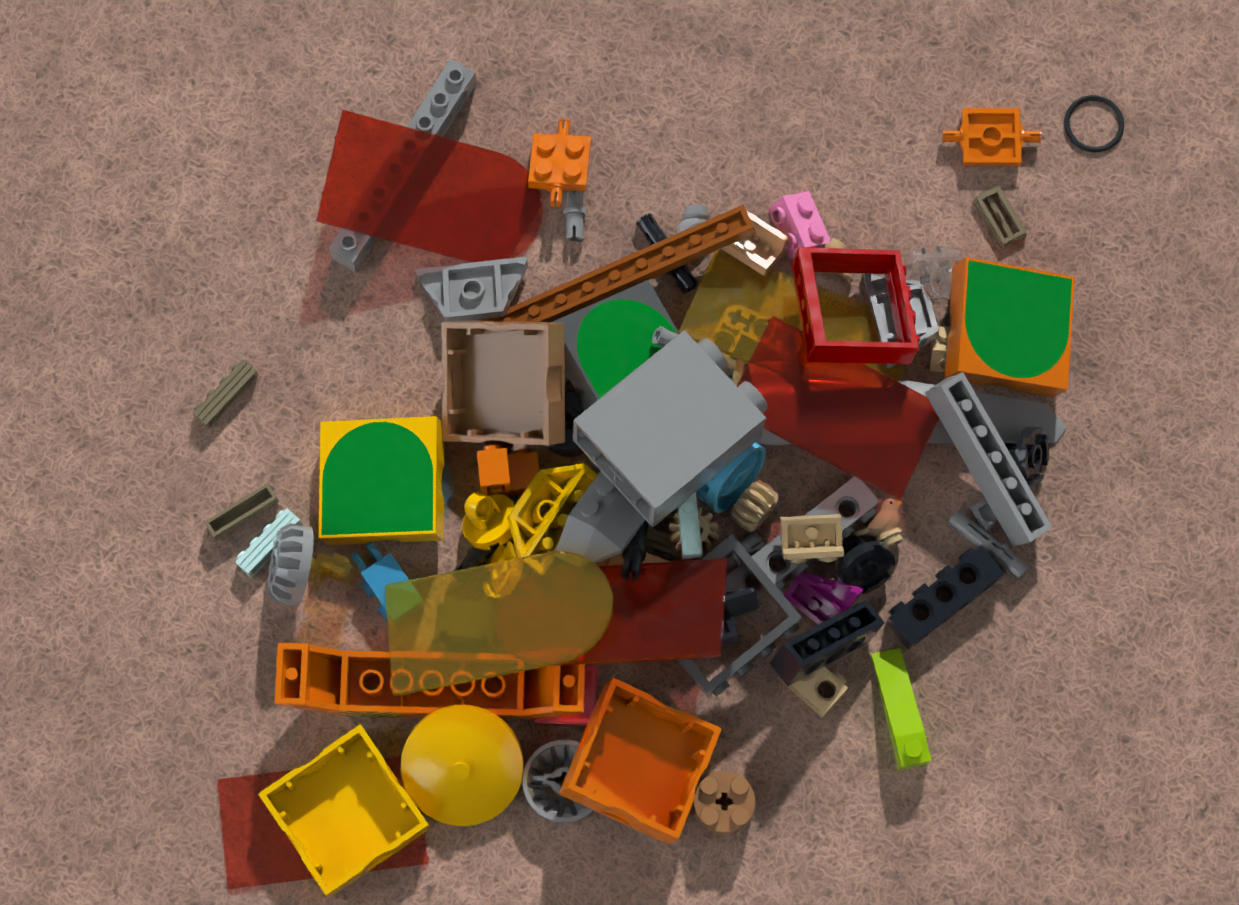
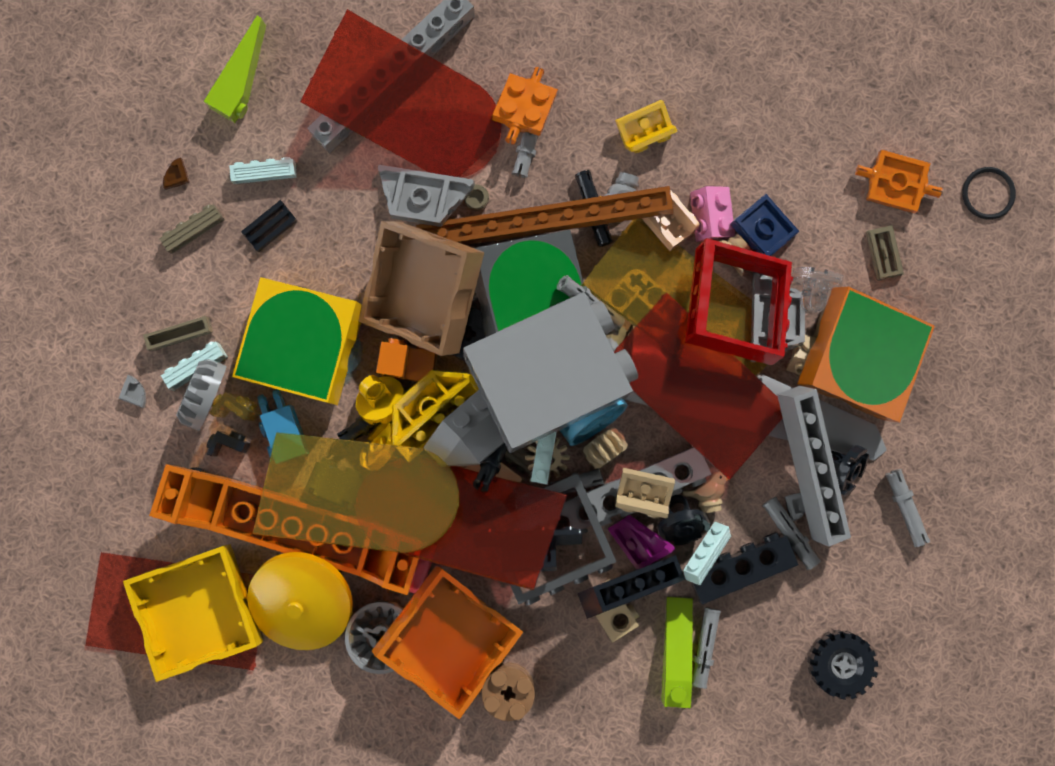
camera: 15 degrees right, 10 degrees up
(190, 340) = (175, 175): none -> reddish brown tile
(206, 591) = (133, 392): none -> light grey tile
(231, 227) = (233, 87): none -> lime slope
(288, 310) = (263, 171): none -> light aqua piece
(325, 347) = (261, 219): none -> black tile
(336, 611) = (233, 440): none -> black bracket
(535, 277) = (477, 198): none -> dark tan tile
(699, 151) = (645, 127): none -> yellow bracket
(860, 222) = (764, 226): none -> dark blue plate
(900, 588) = (707, 553): none -> light aqua piece
(934, 731) = (701, 678): none -> light grey pin
(1101, 668) = (855, 667): none -> black wheel
(1107, 482) = (910, 514): none -> light grey pin

